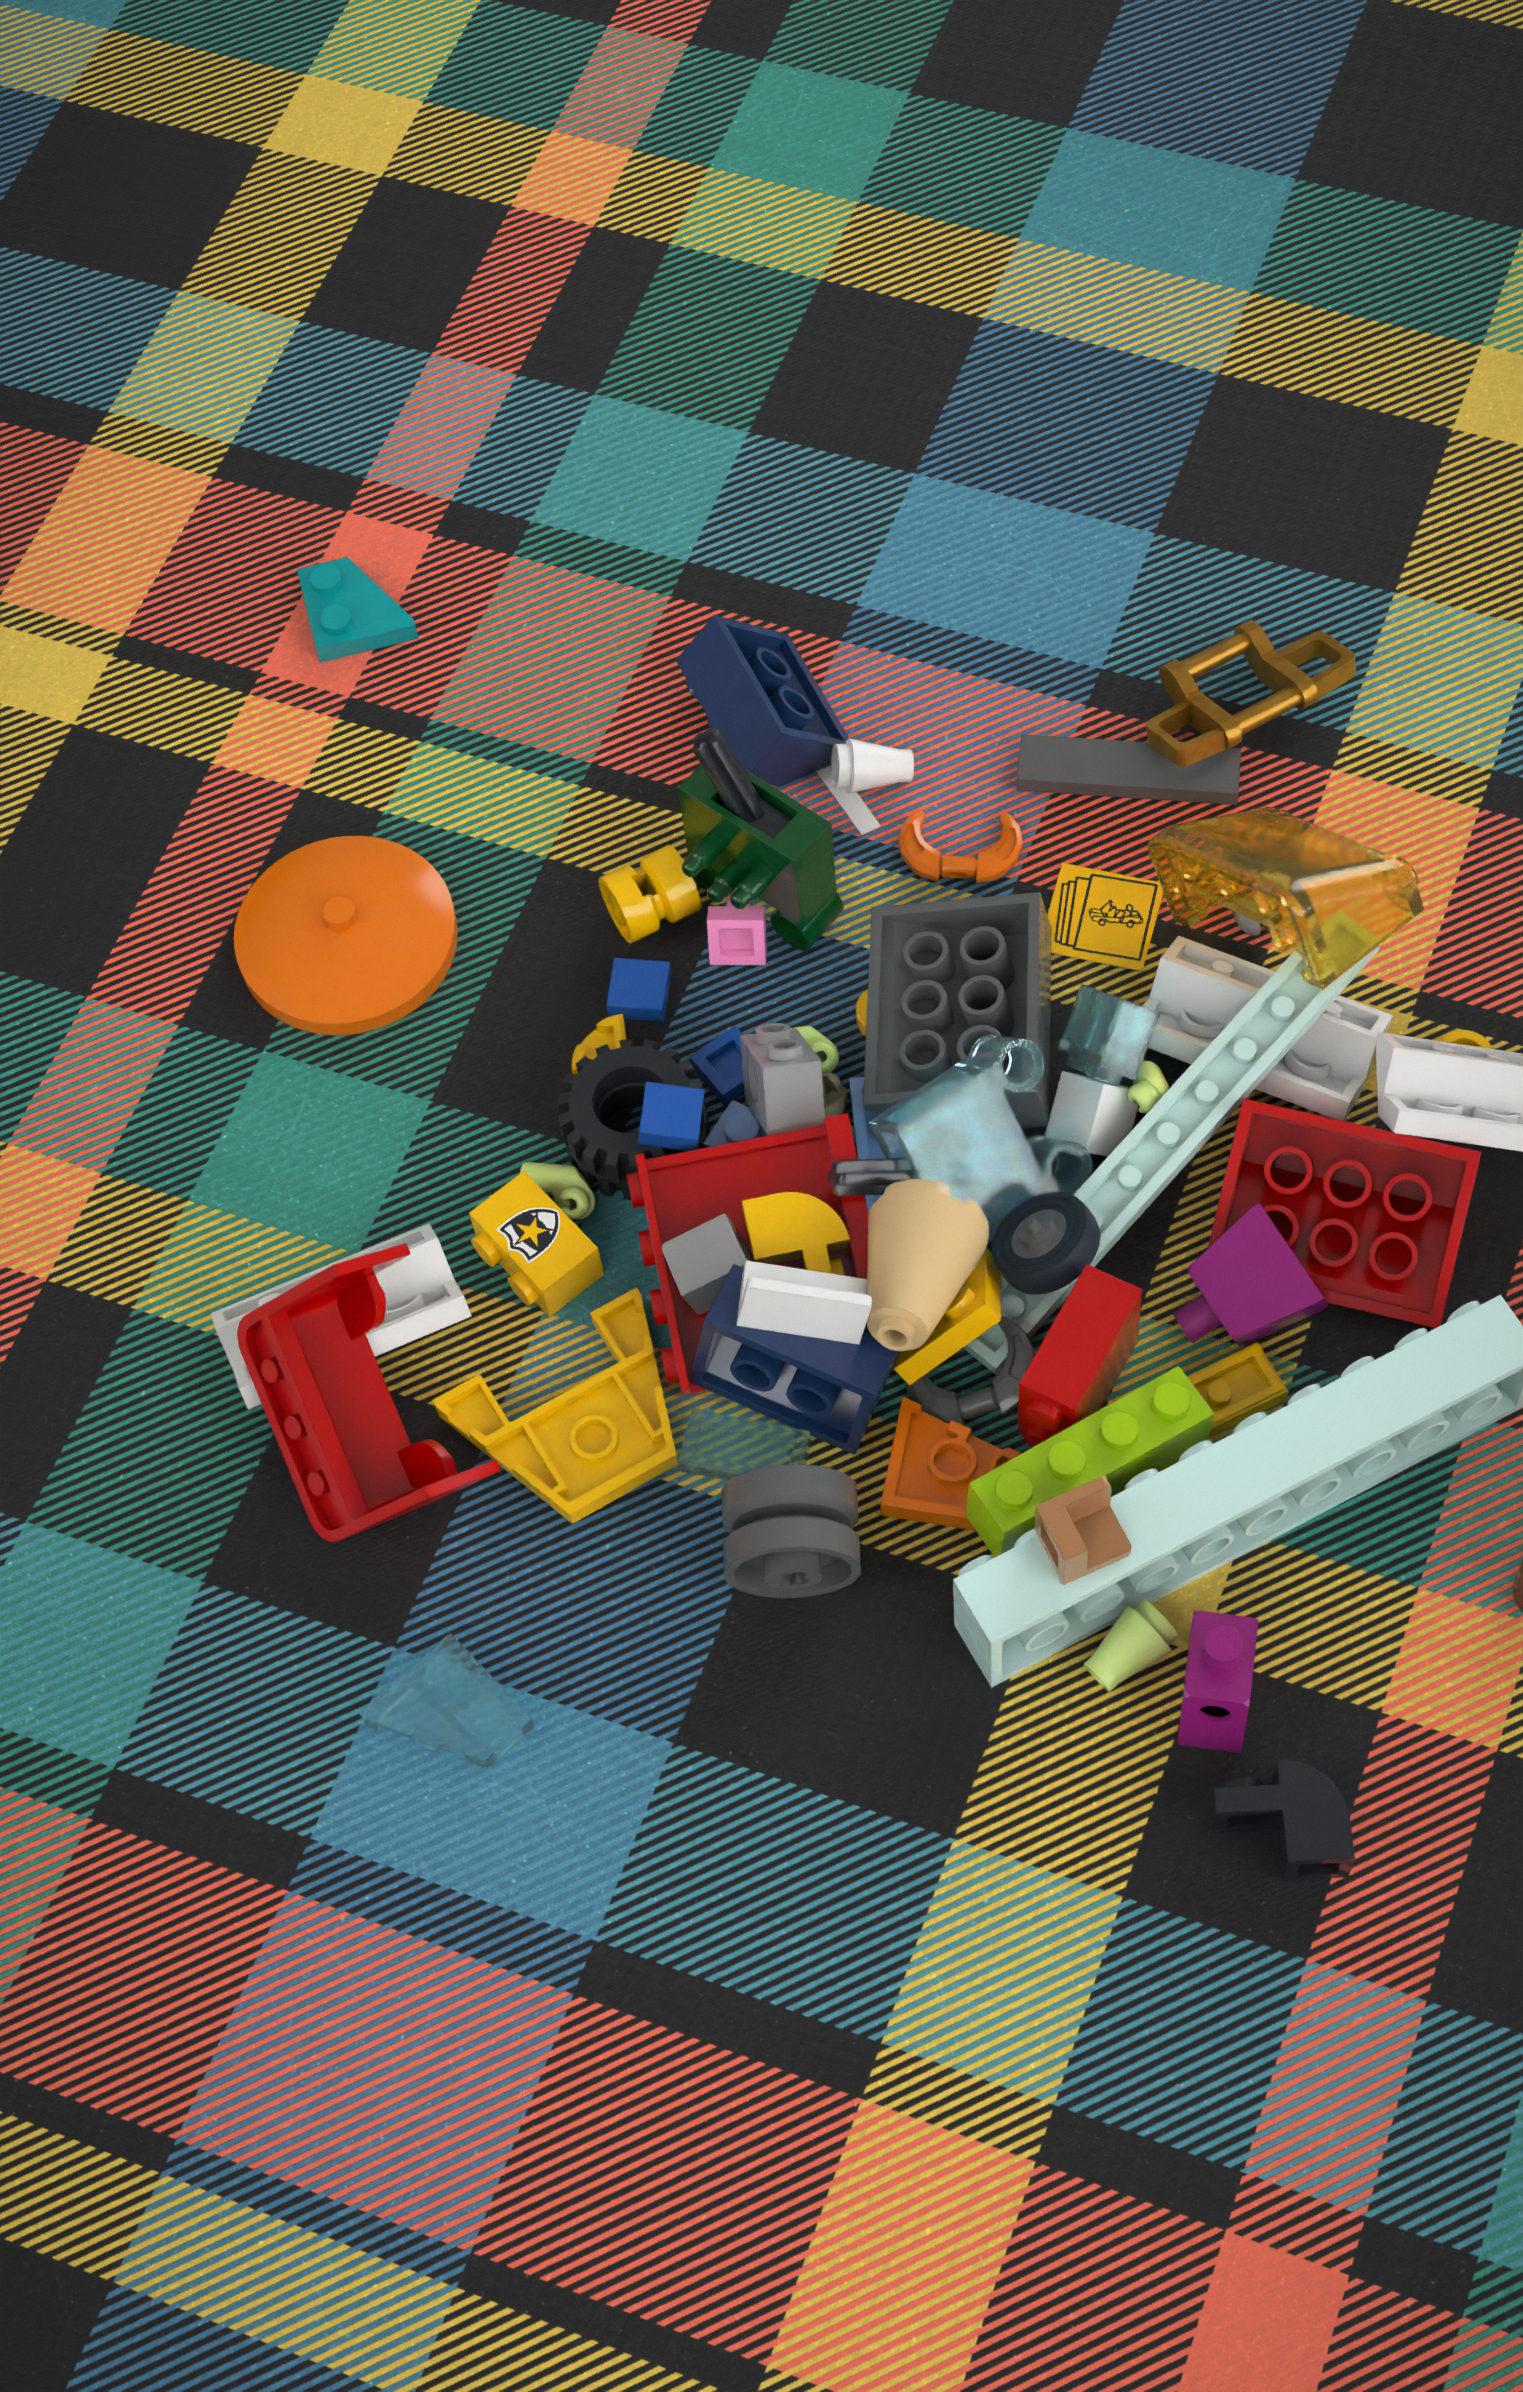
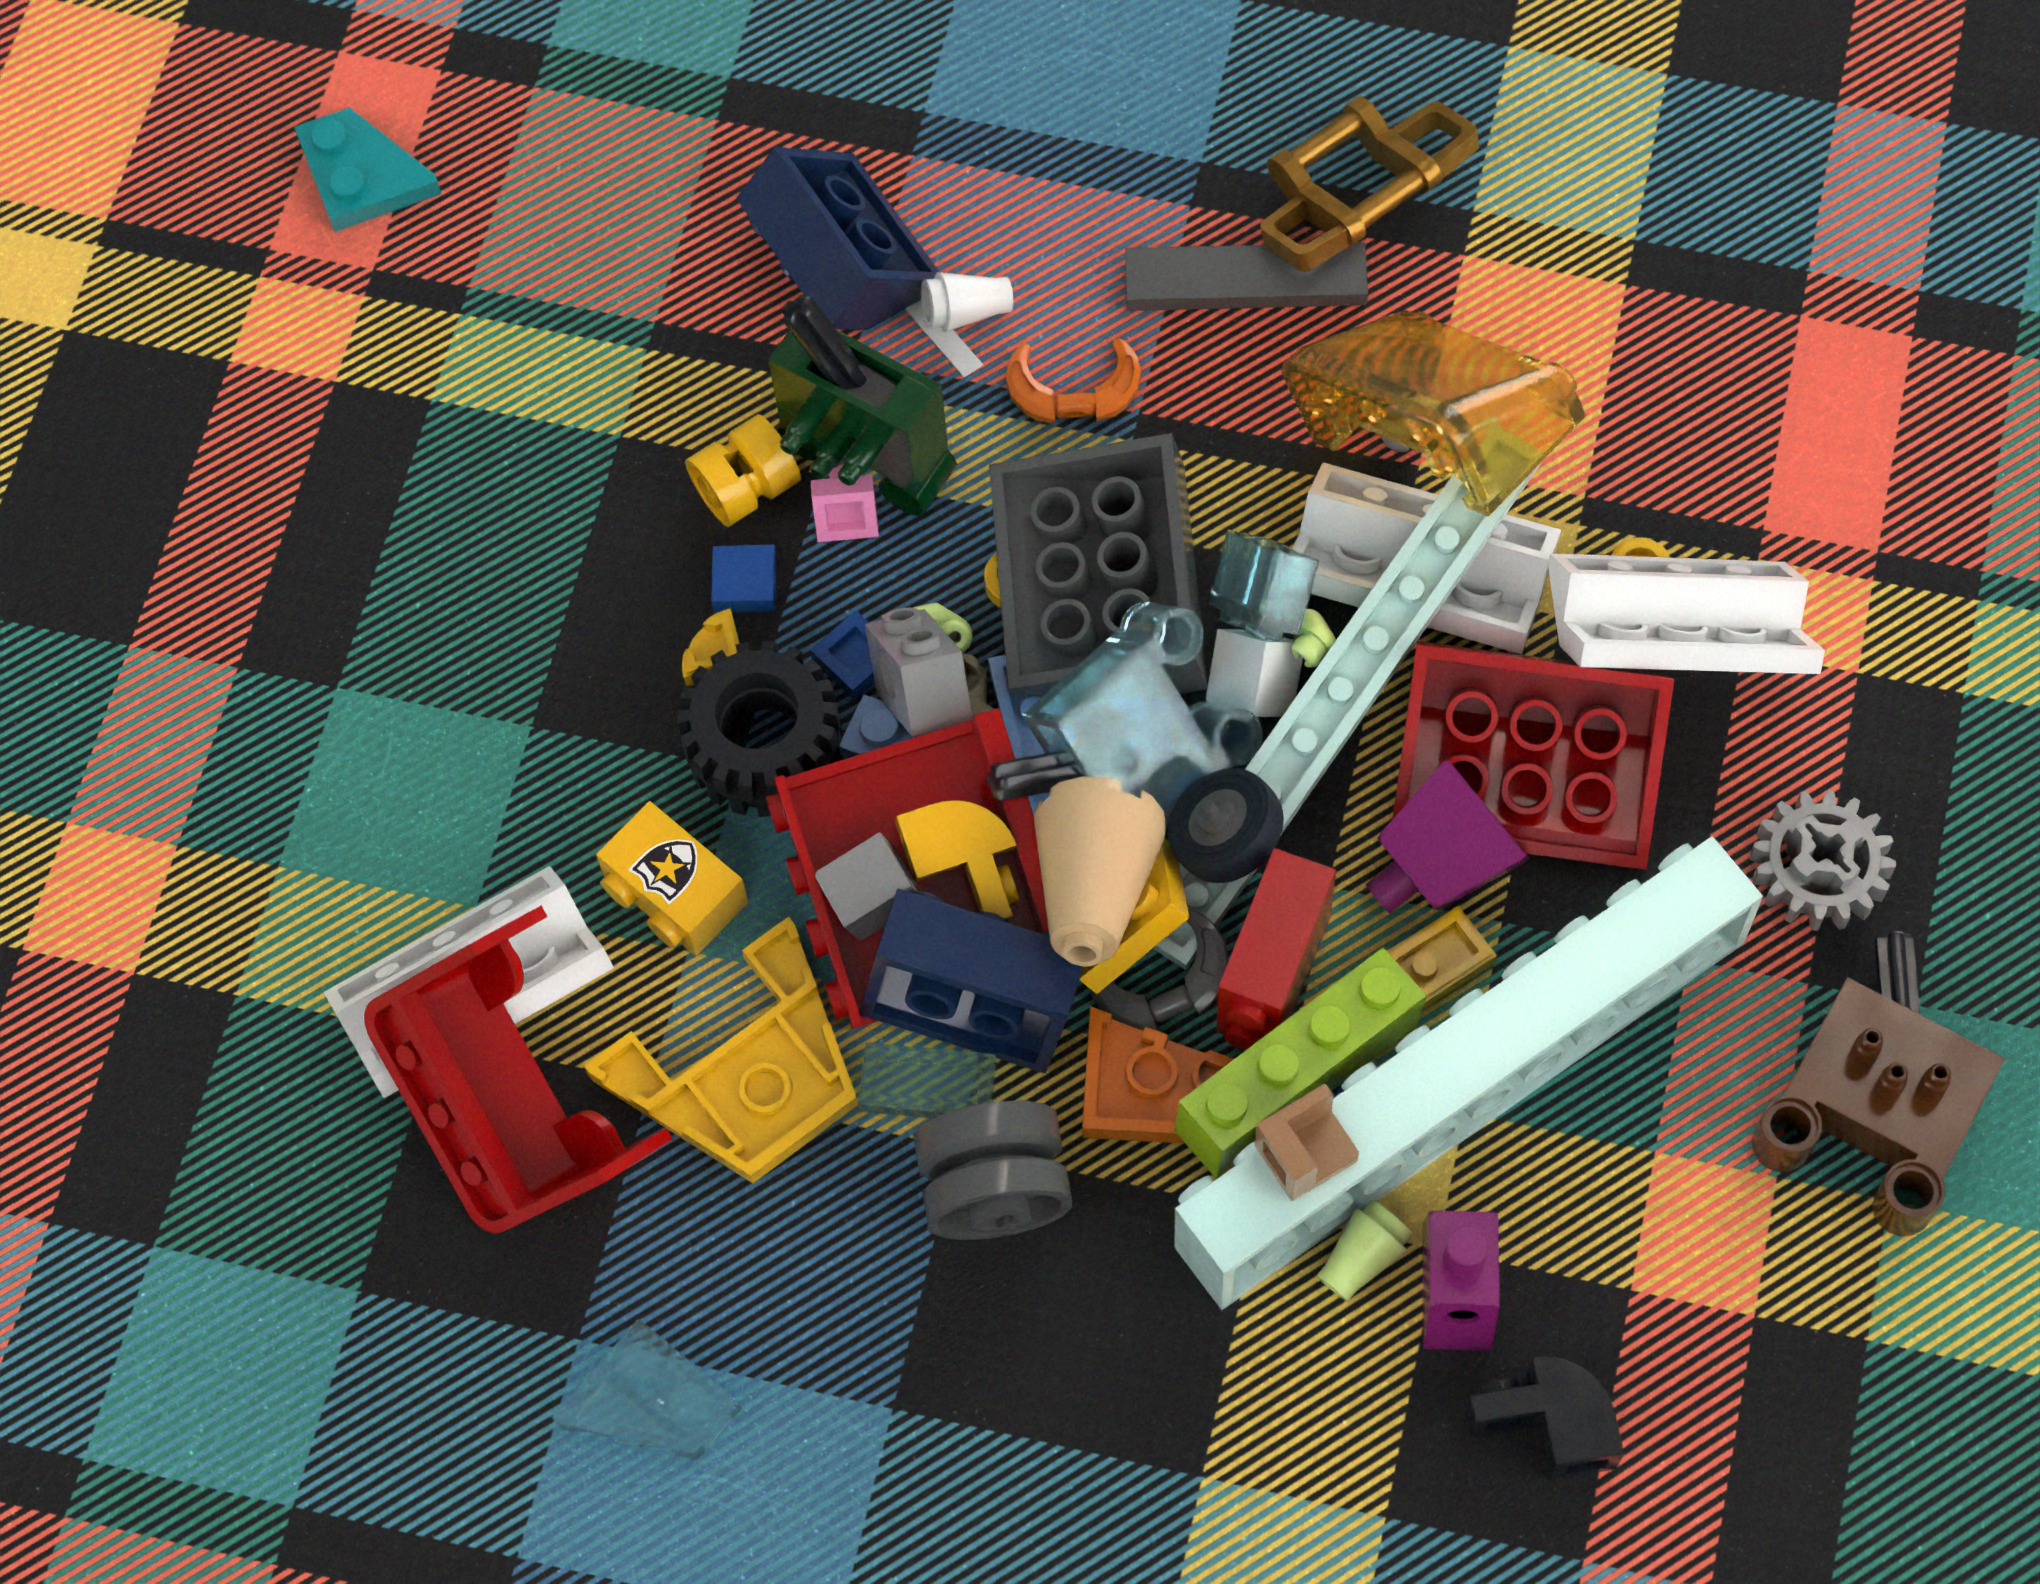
camera: 10 degrees left, 5 degrees up
(346, 935) = (410, 547): orange dish -> none
(566, 1186) = (694, 808): yellowish green arm -> none
(671, 1116) = (805, 726): blue tile -> none
(803, 1302) = (979, 924): white panel -> none
(1103, 916) = (1238, 445): yellow sticker -> none

